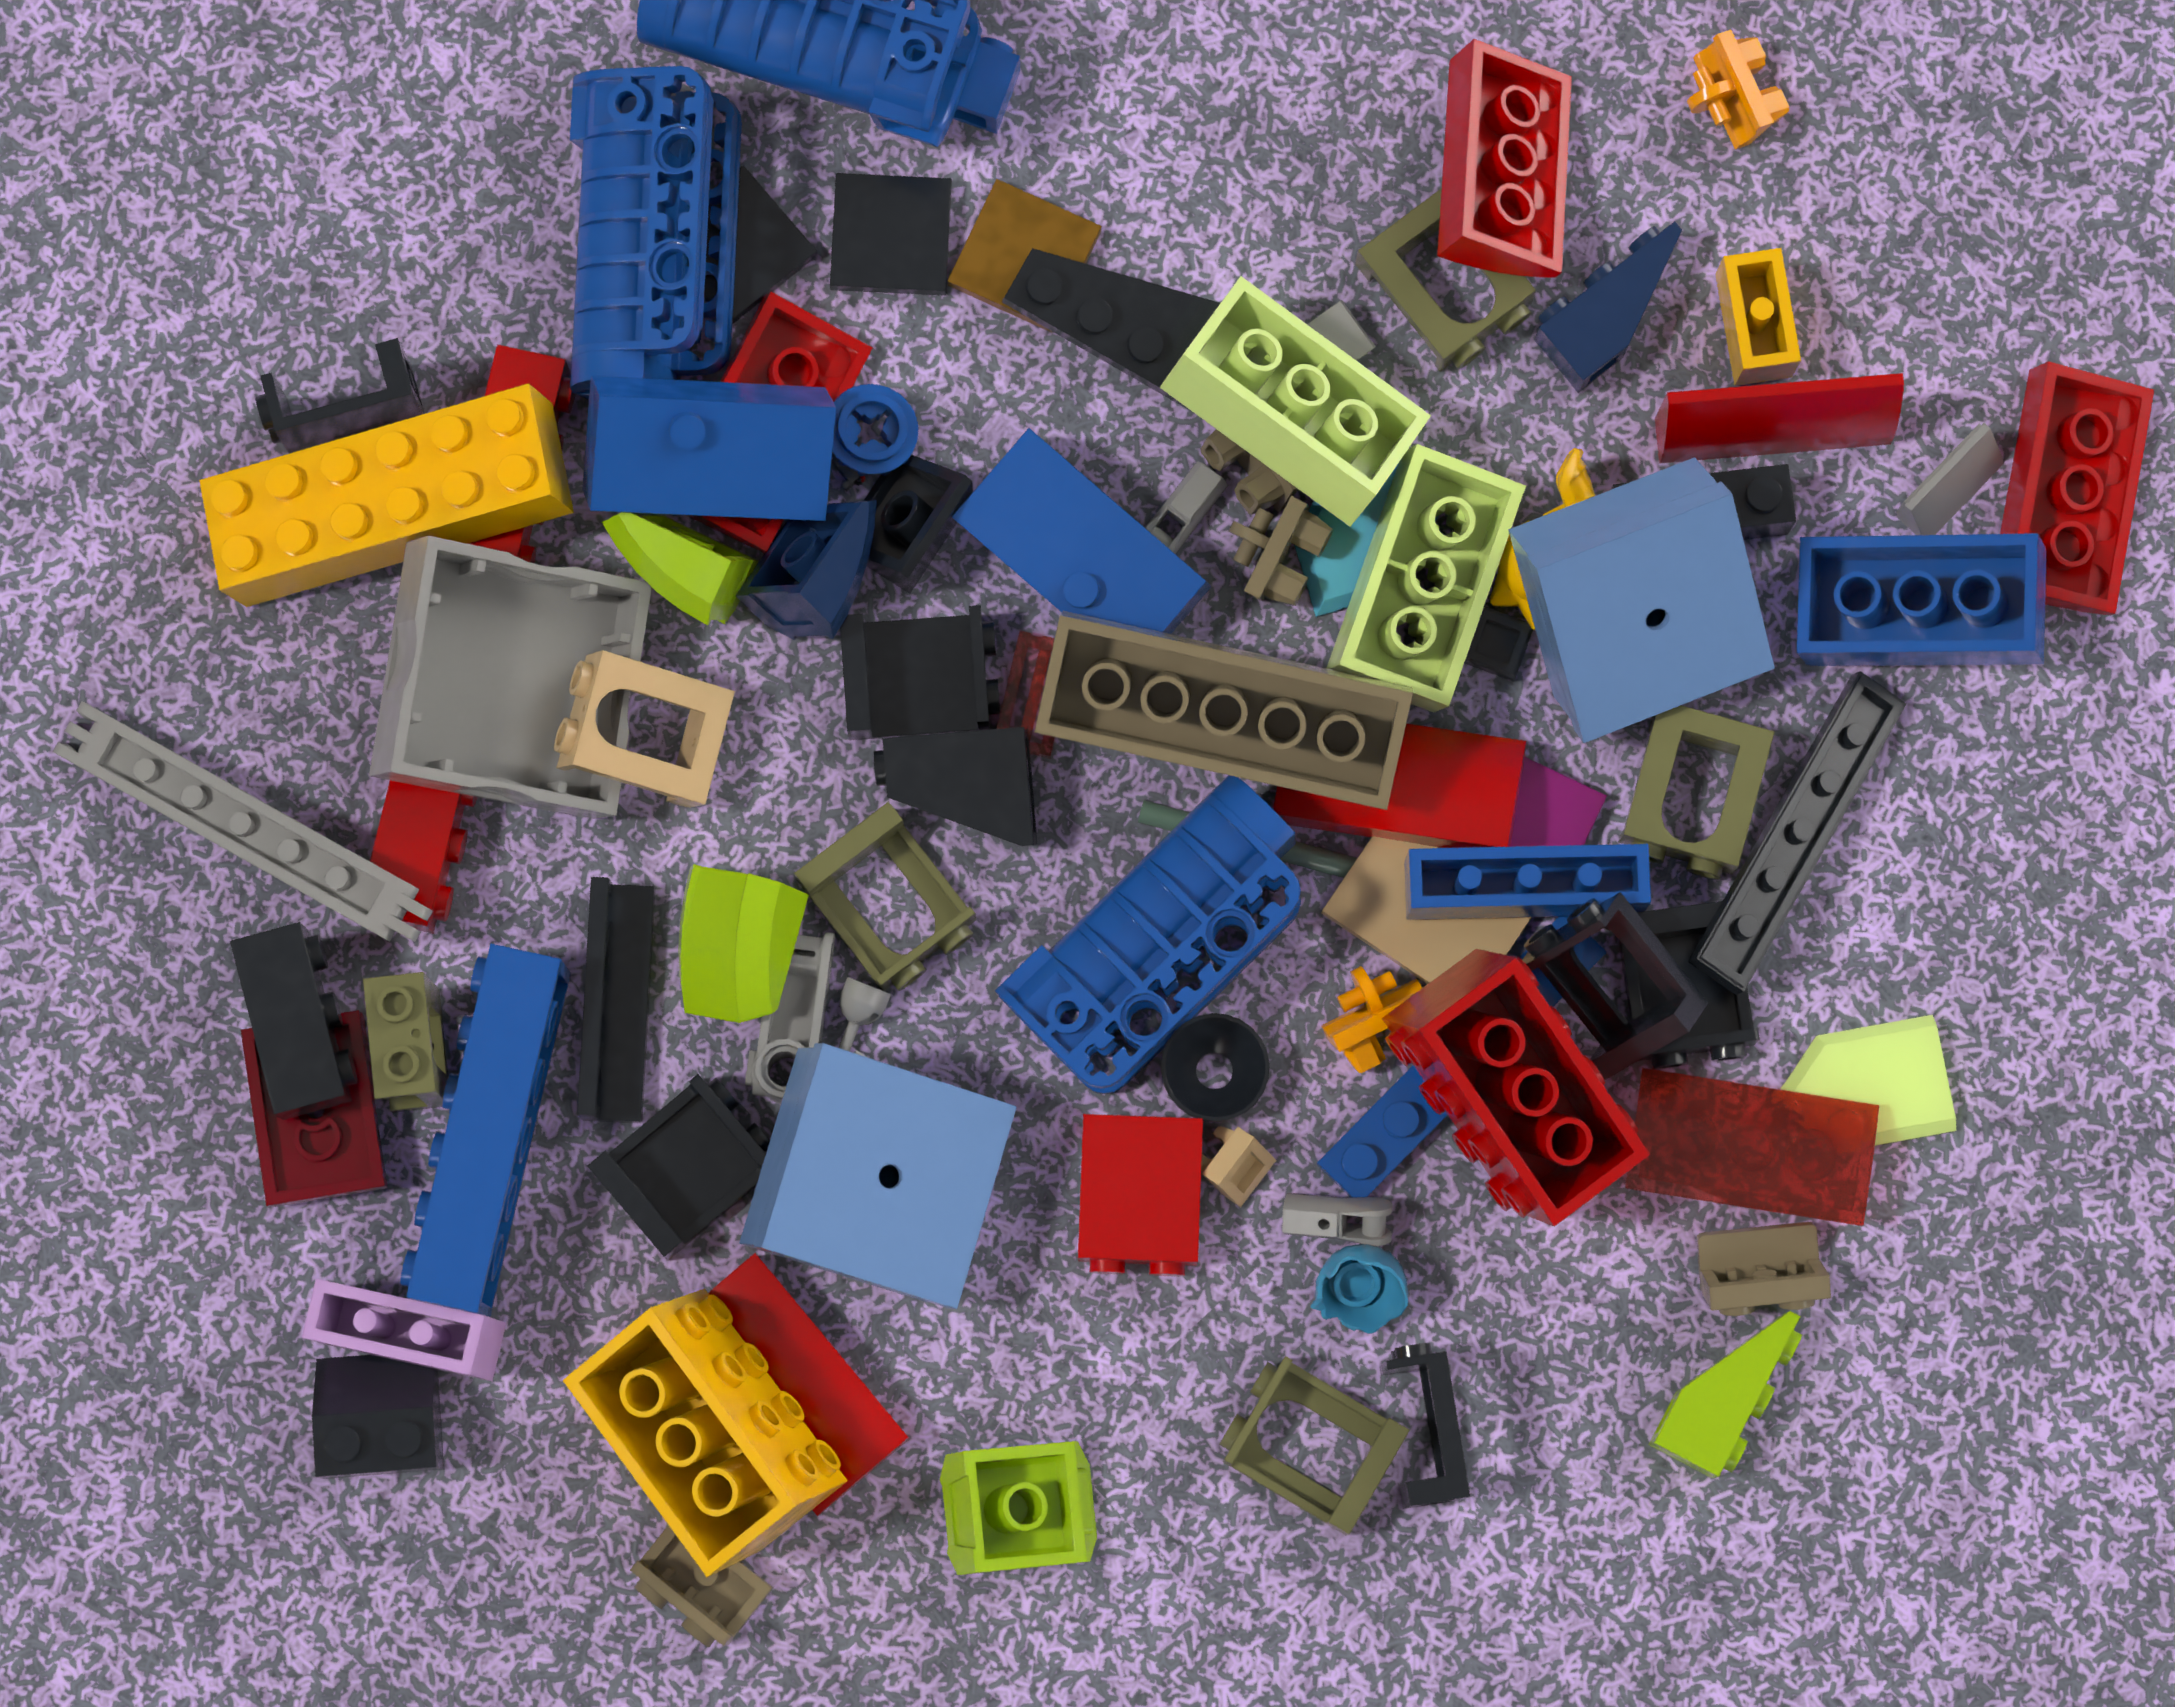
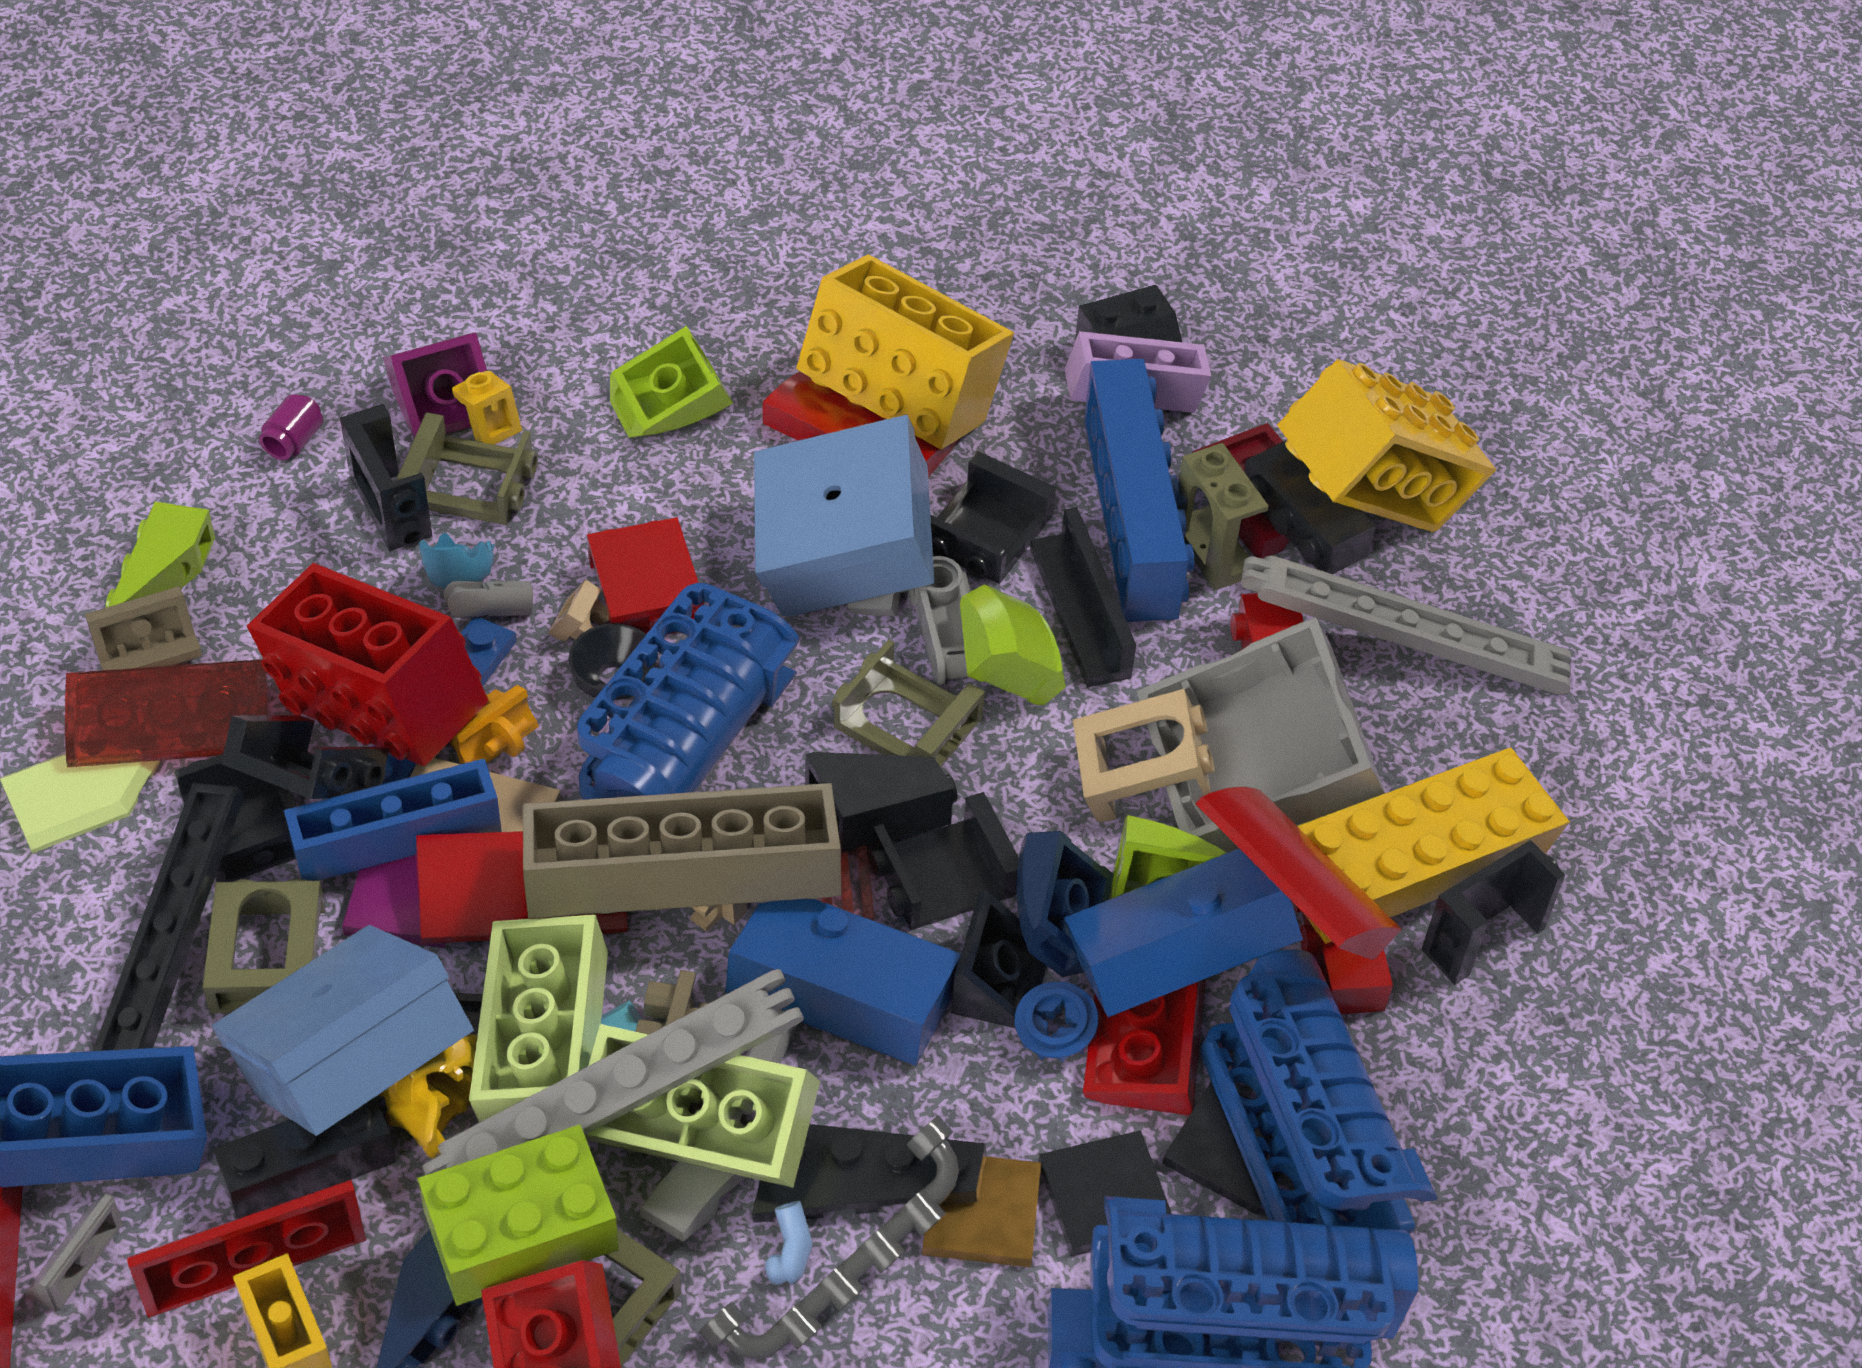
camera: 160 degrees right, 30 degrees down
(161, 1050) = (1385, 446): none -> yellow brick
(577, 415) = (1300, 870): none -> red slope
(860, 1006) = (905, 642): light grey hinge -> none
(1198, 203) = (841, 1284): none -> dark grey bar
(1238, 251) = (797, 1245): none -> light blue arm
(1266, 1543) = (489, 407): none -> yellow bracket
(1314, 1608) = (425, 379): none -> magenta slope
(1376, 422) = (634, 1072): none -> light grey hinge
(1507, 332) = (518, 1212): none -> lime brick
(1522, 1590) = (290, 426): none -> magenta brick

